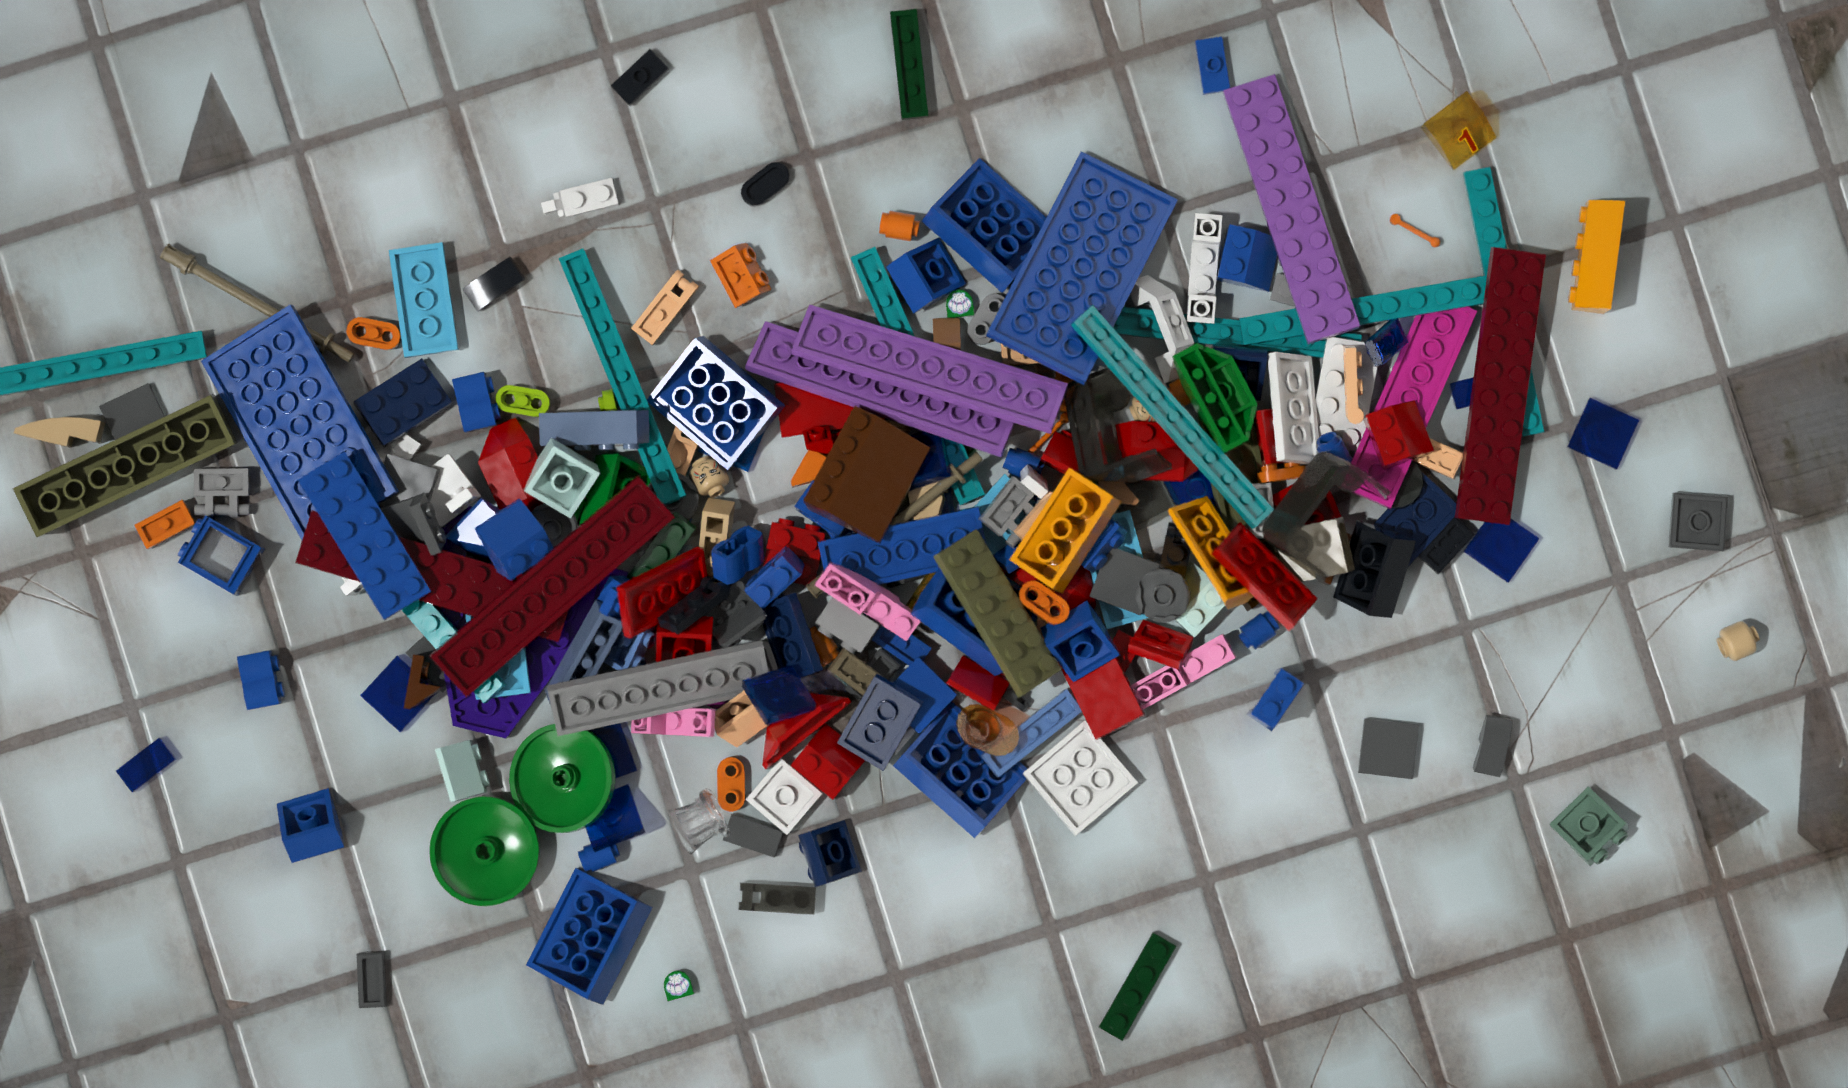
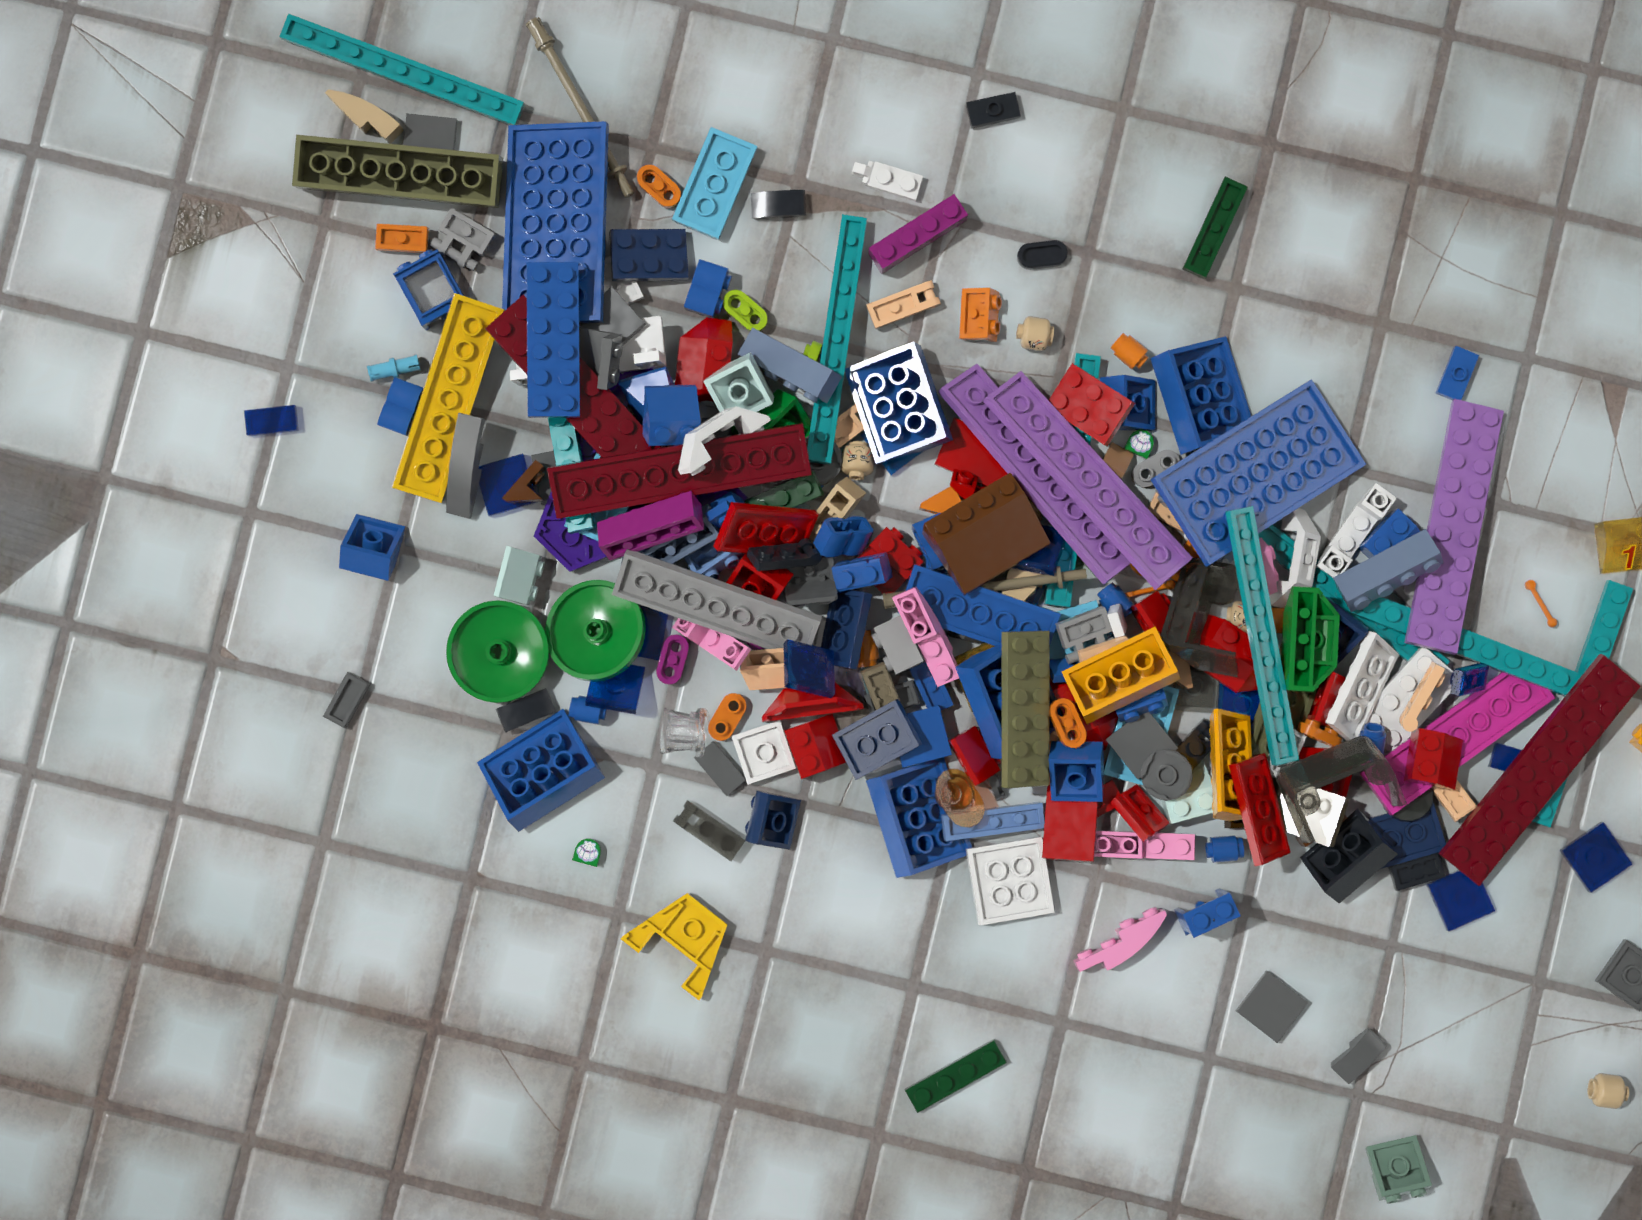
camera: 25 degrees right, 0 degrees up
(230, 648) = (393, 368): none -> medium azure pin
(297, 648) = (447, 391): none -> yellow plate
(351, 701) = (464, 465): none -> dark grey slope
(542, 890) = (525, 710): none -> black slope
(555, 562) = (693, 451): none -> white slope
(555, 651) = (650, 525): none -> magenta brick
(639, 234) = (917, 234): none -> magenta brick
(649, 762) = (672, 659): none -> magenta plate
(802, 261) = (1035, 333): none -> tan head
(813, 999) = (689, 929): none -> yellow wing
(891, 298) = (1090, 404): none -> red plate
(1146, 354) = (1271, 573): none -> bright pink plate
(1222, 762) = (1132, 938): none -> bright pink slope
(1252, 288) = (1388, 570): none -> sand blue brick

